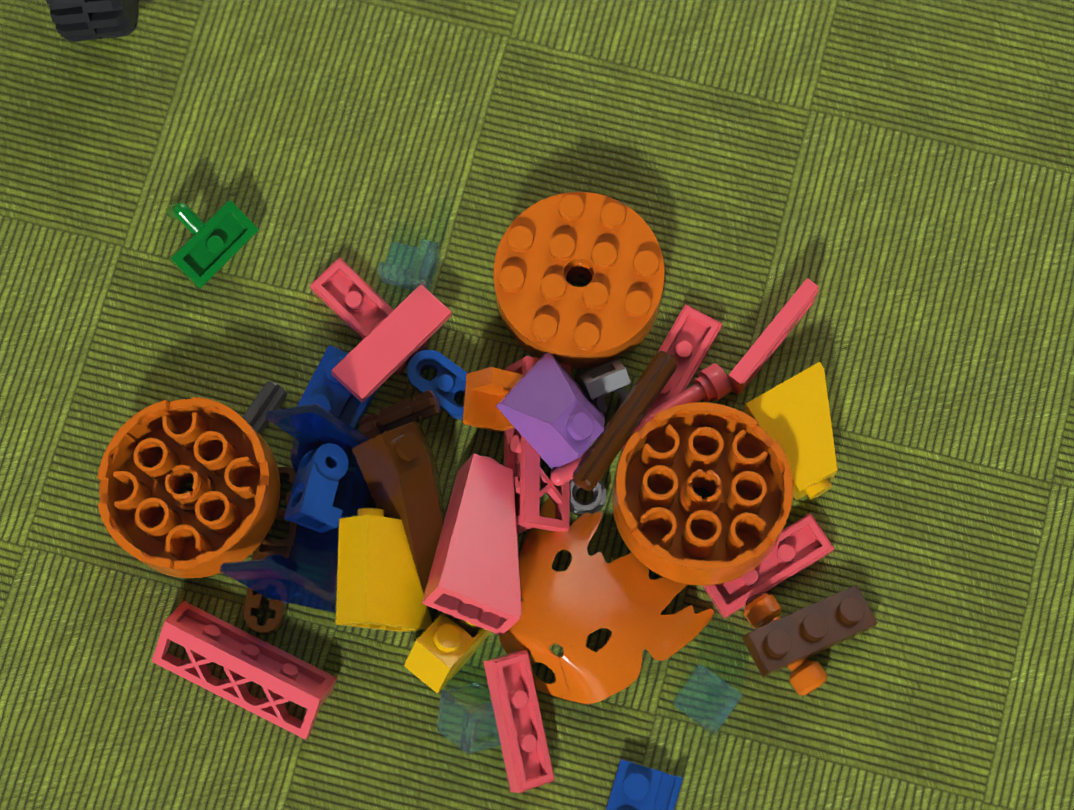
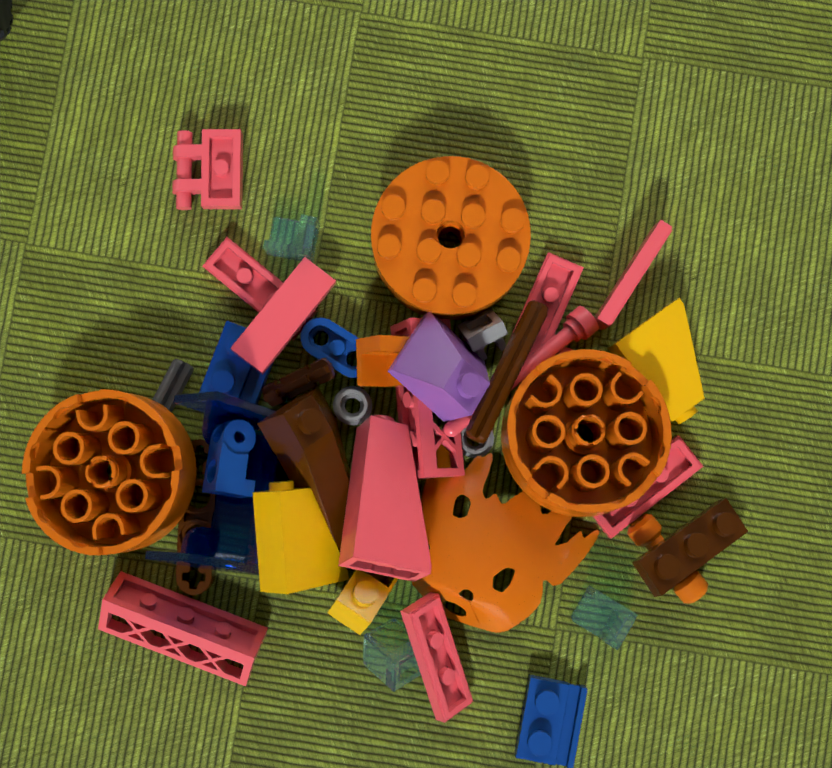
camera: 15 degrees left, 10 degrees up
(211, 241) = (106, 233): green plate -> none
(340, 188) = (220, 169): none -> coral plate
(450, 436) = (341, 399): none -> light grey plate

